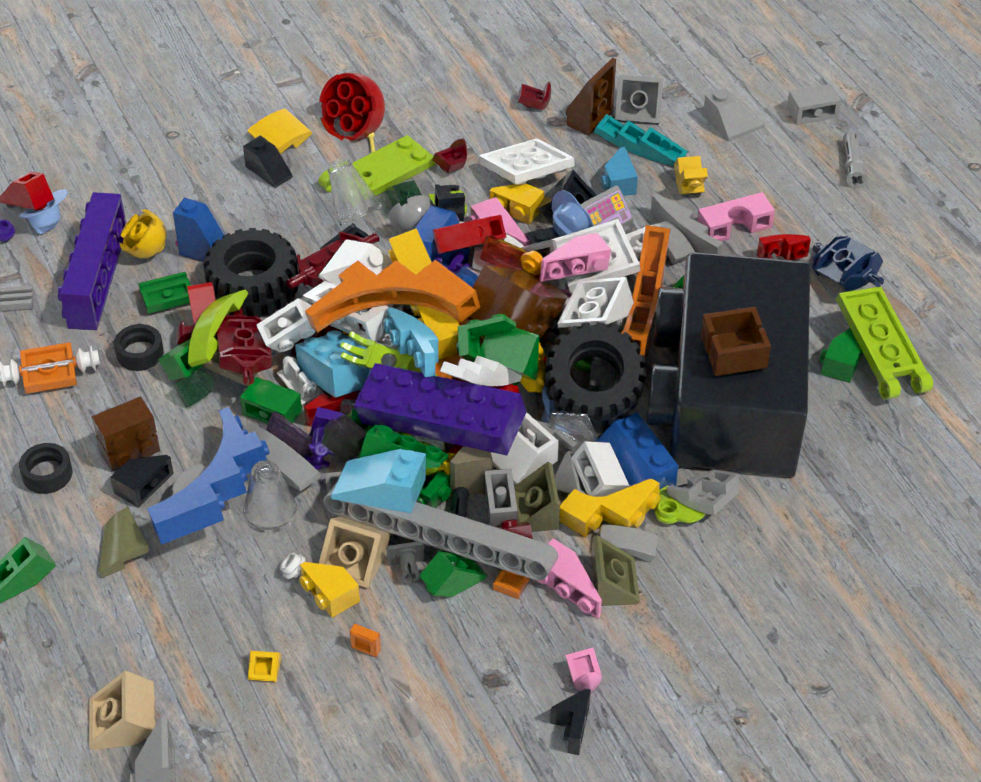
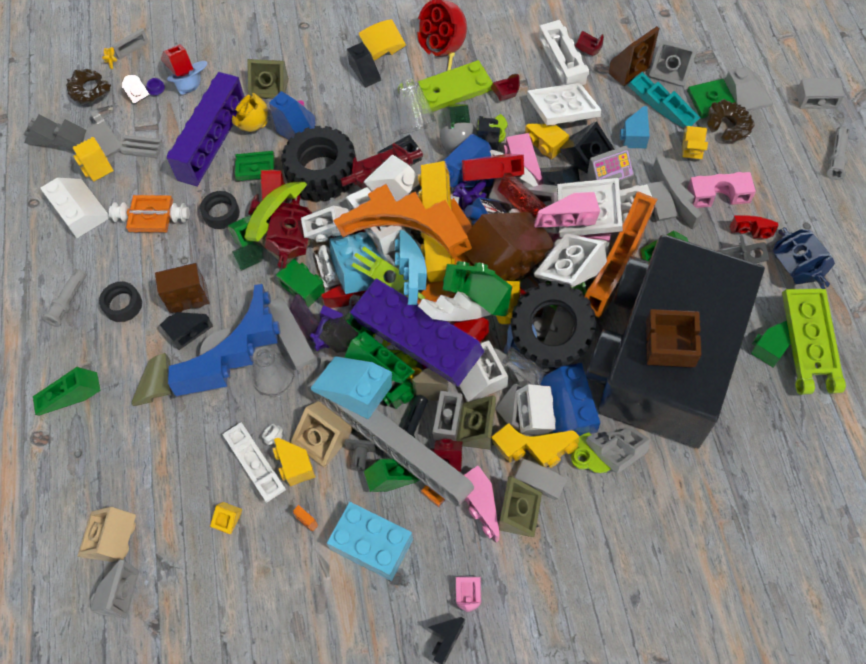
camera: 20 degrees right, 15 degrees up
(149, 192) = (266, 77): none -> olive slope
(278, 600) = (254, 462): none -> white slope
(452, 644) = (370, 541): none -> medium azure brick
(506, 111) = (551, 36): none -> white brick
(532, 262) = (531, 208): light orange plate -> none
(568, 214) = (580, 166): medium blue piece -> none
(695, 130) = (707, 93): none -> green plate
(727, 140) = (736, 115): none -> dark brown piece

